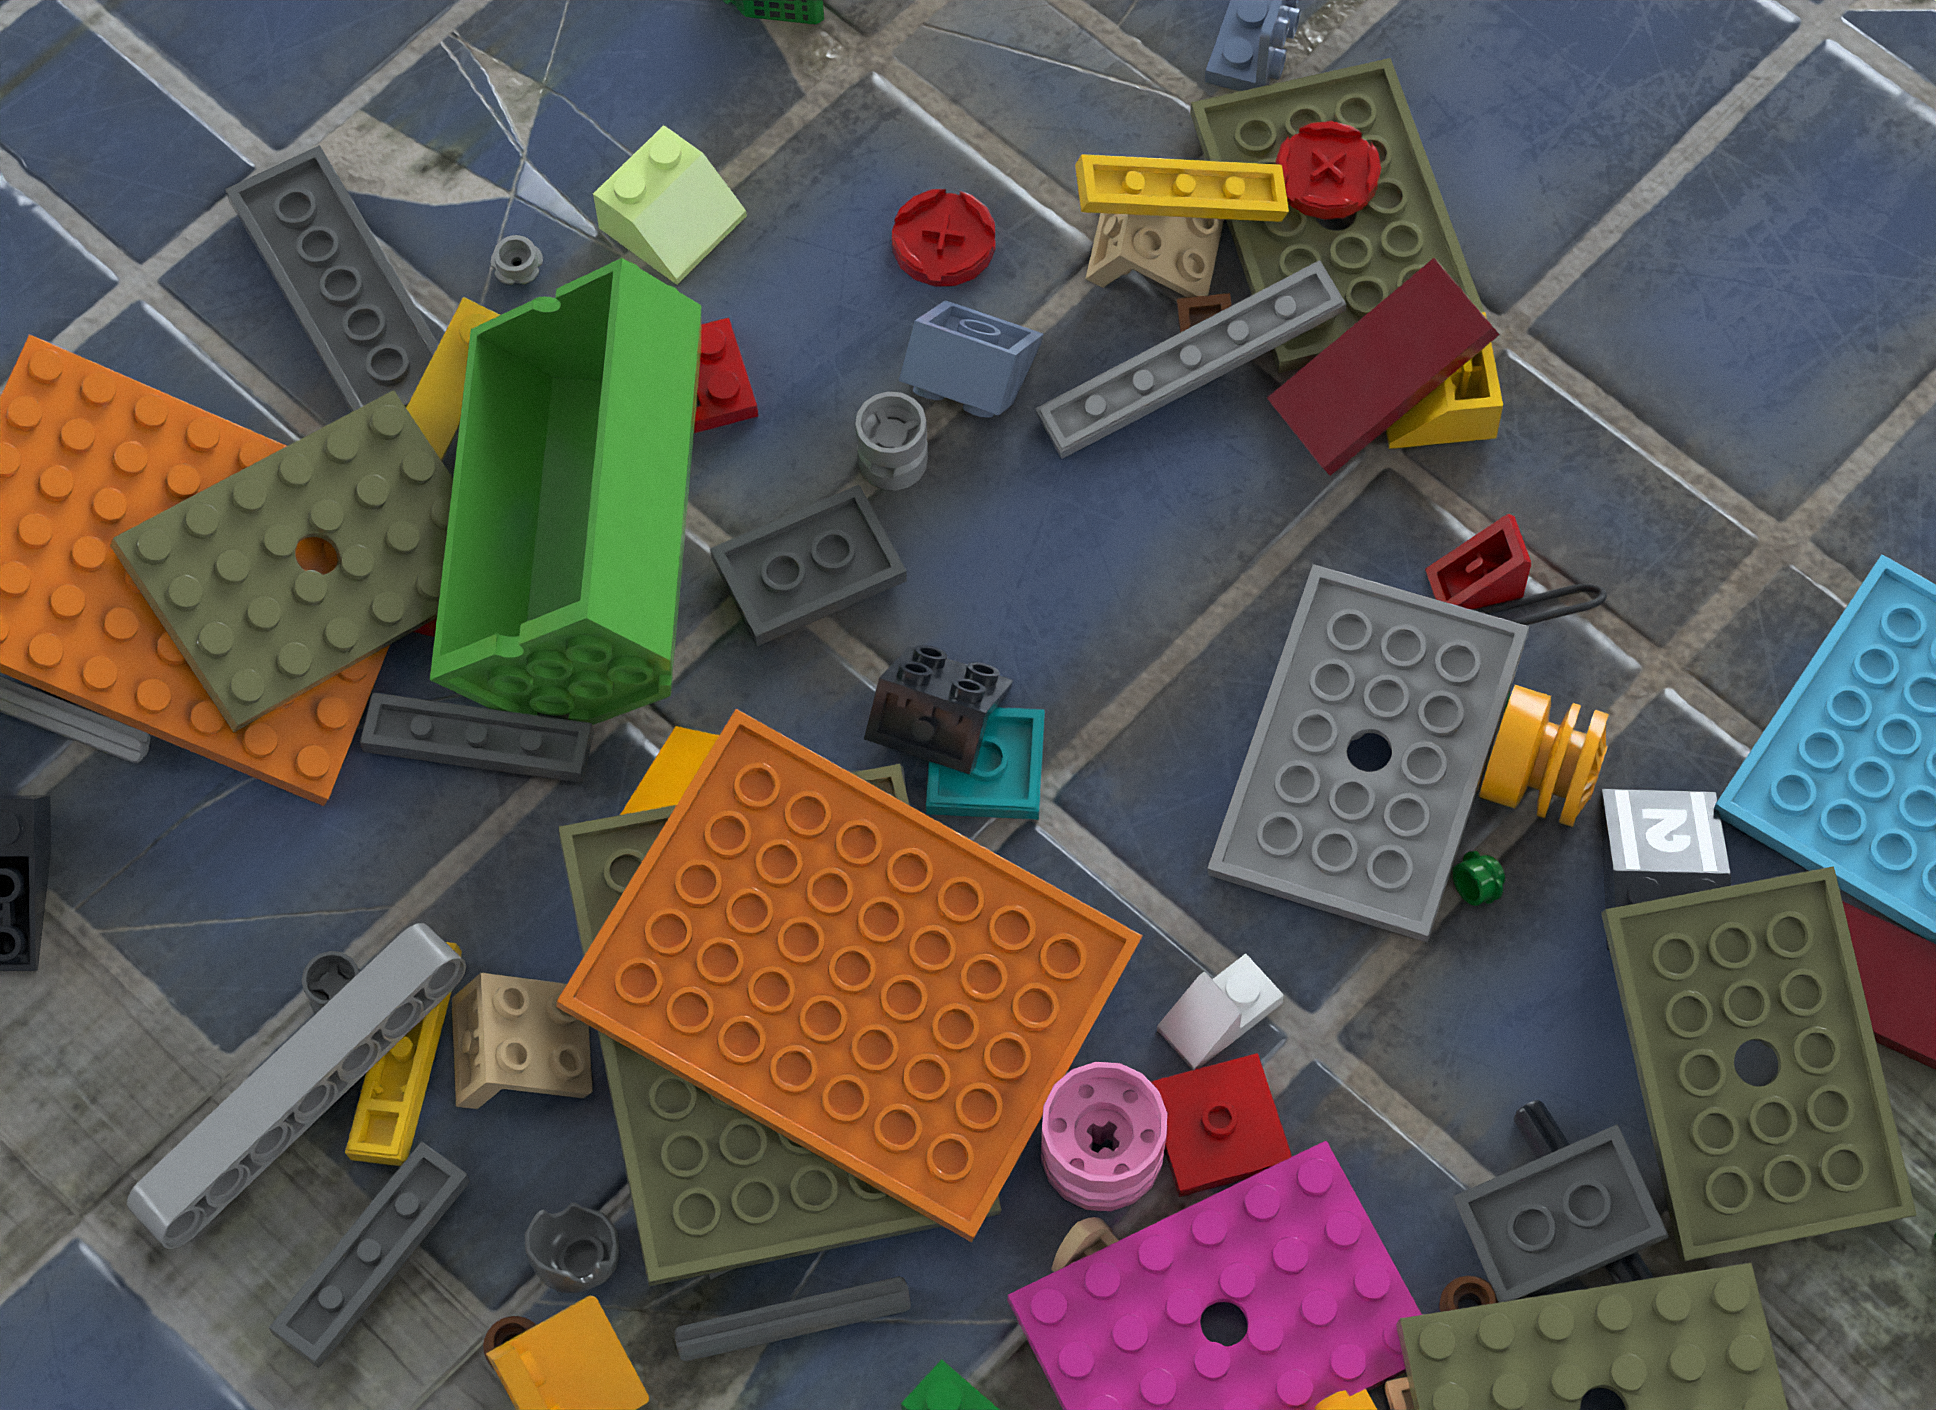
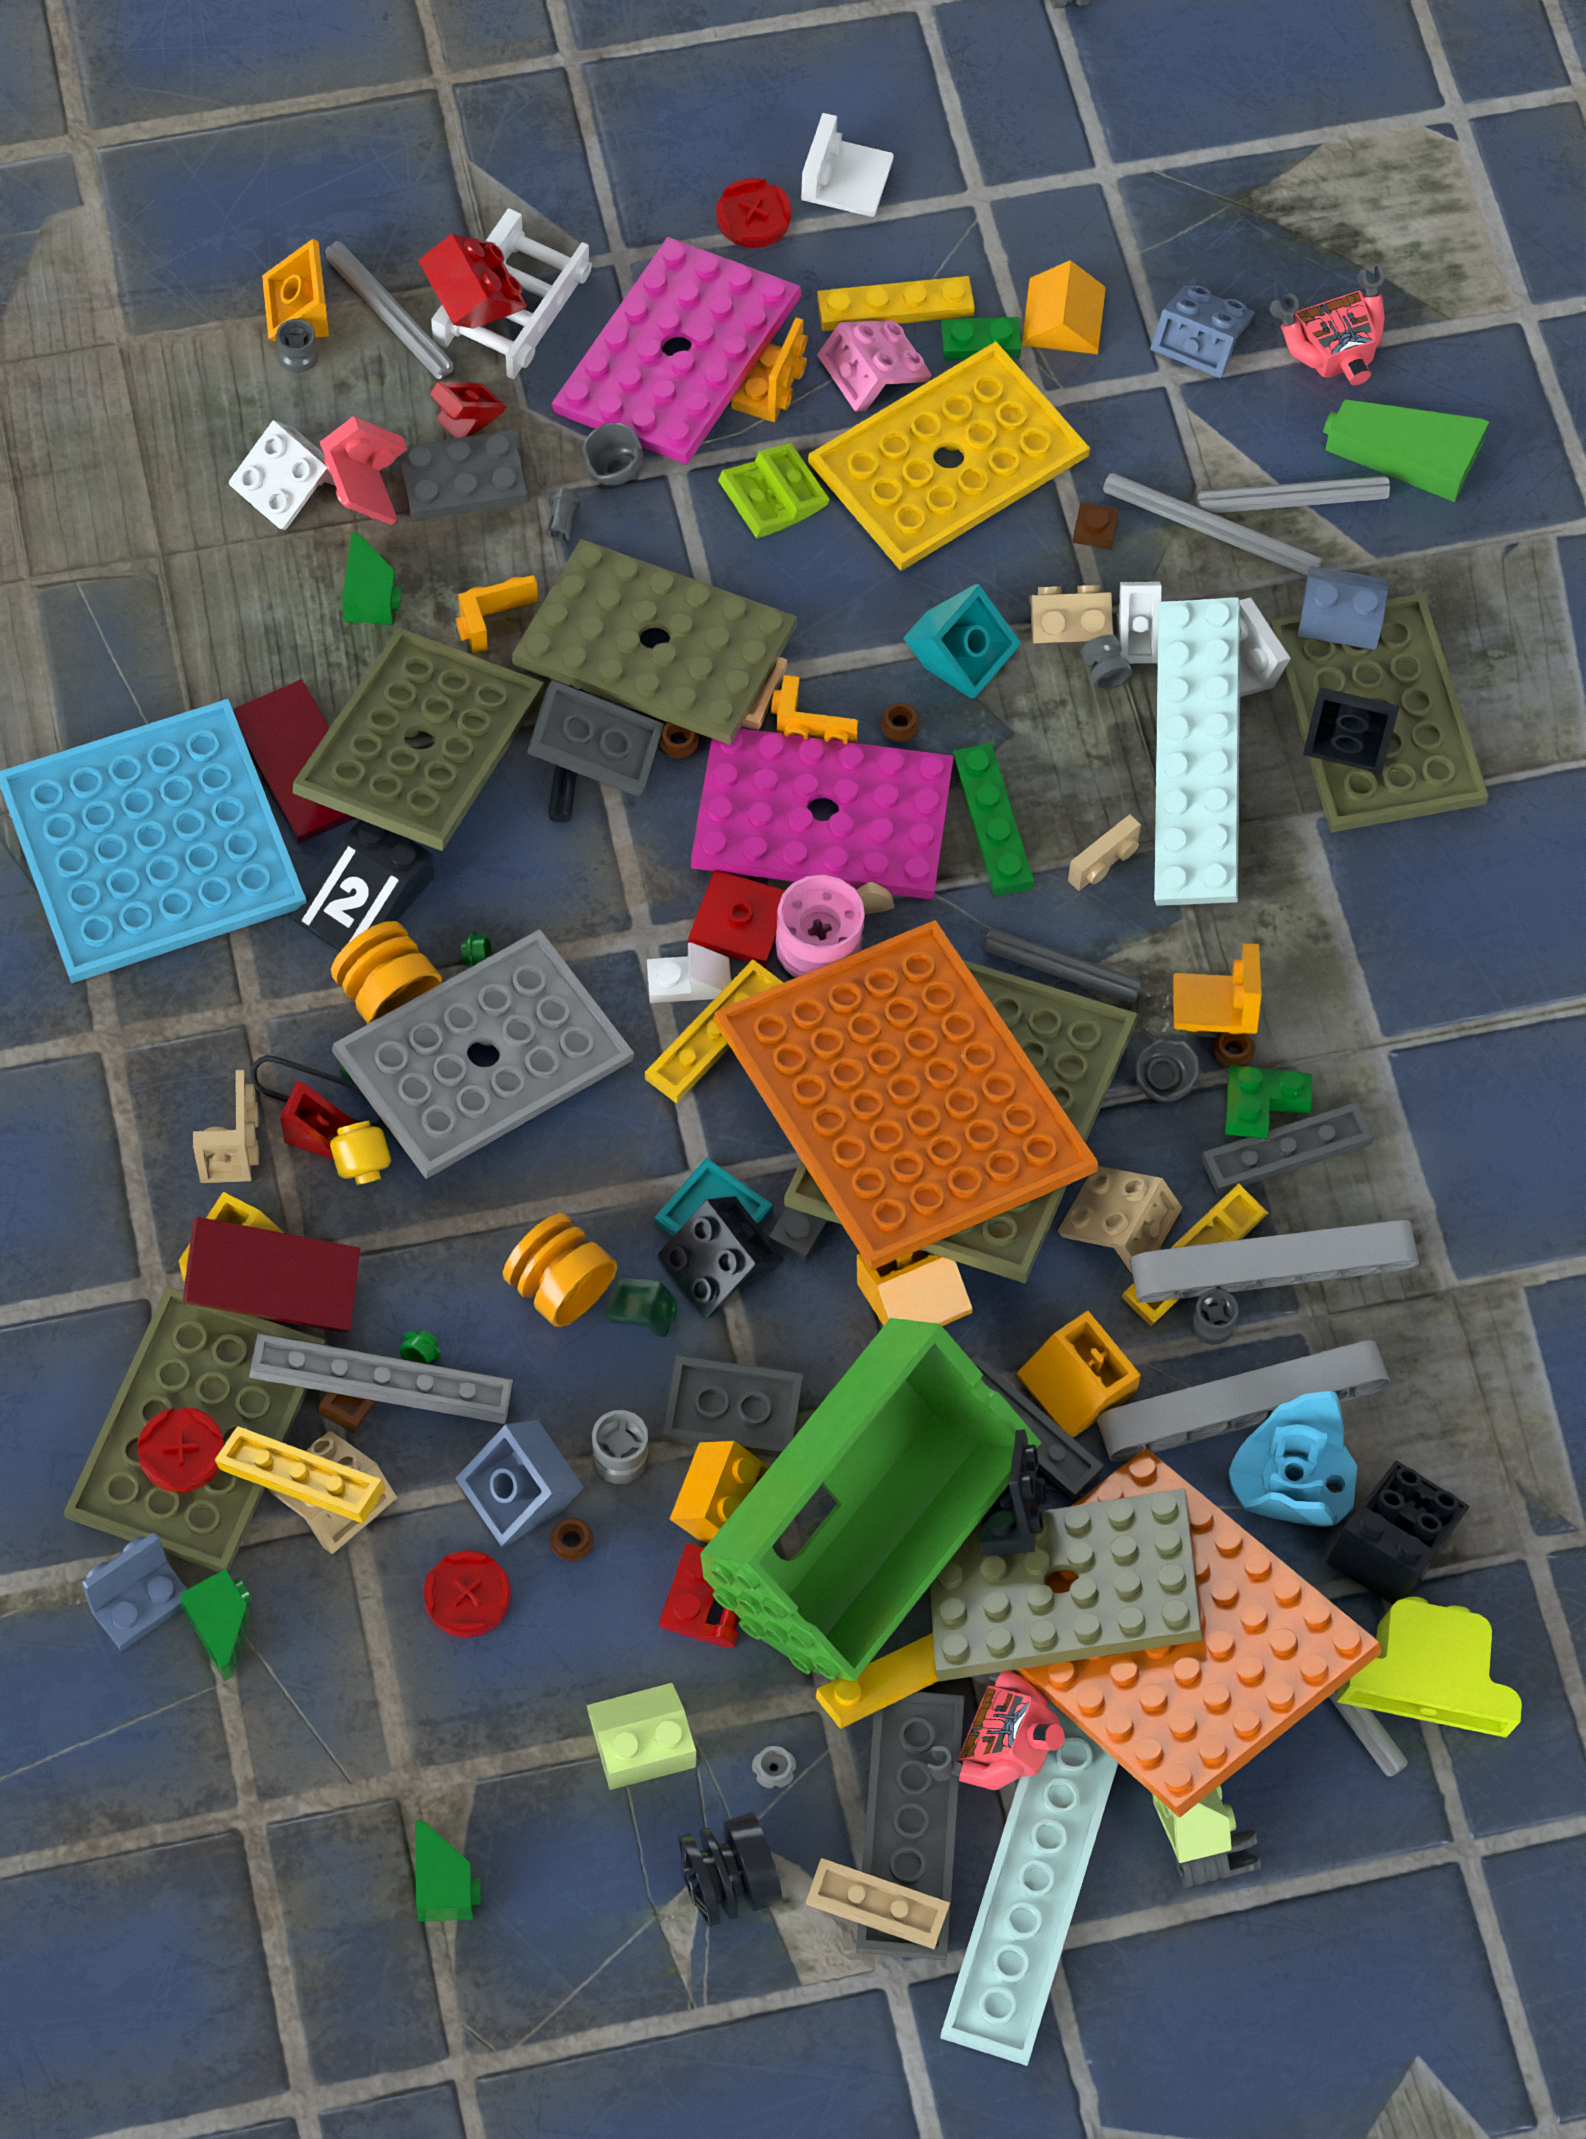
camera: 150 degrees left, 0 degrees up
(129, 841) = (1299, 1443): none -> medium azure piece
(173, 274) = (1030, 1899): none -> light aqua plate
(243, 918) = (1239, 1400): none -> light grey beam
(286, 385) = (1006, 1737): none -> coral torso
(318, 176) = (877, 1903): none -> tan plate
(408, 581) = (1016, 1514): none -> black bracket
(444, 822) = (1079, 1375): none -> light orange slope
(454, 1296) = (1258, 1090): none -> green plate
(485, 121) = (730, 1869): none -> black wheel
(745, 467) = (715, 1487): none -> light orange slope
(878, 330) = (567, 1528): none -> reddish brown plate
(984, 604) = (642, 1304): none -> clear green bracket
(1091, 562) = (559, 1270): none -> light orange wheel
(1138, 1000) = (702, 1040): none -> yellow plate
(1159, 59) = (219, 1617): none -> green slope
(1180, 423) = (420, 1347): none -> green plate
(1409, 561) = (360, 1152): none -> yellow head
(1541, 487) = (226, 1153): none -> tan bracket
(1841, 1286) = (490, 600): none -> light orange bracket

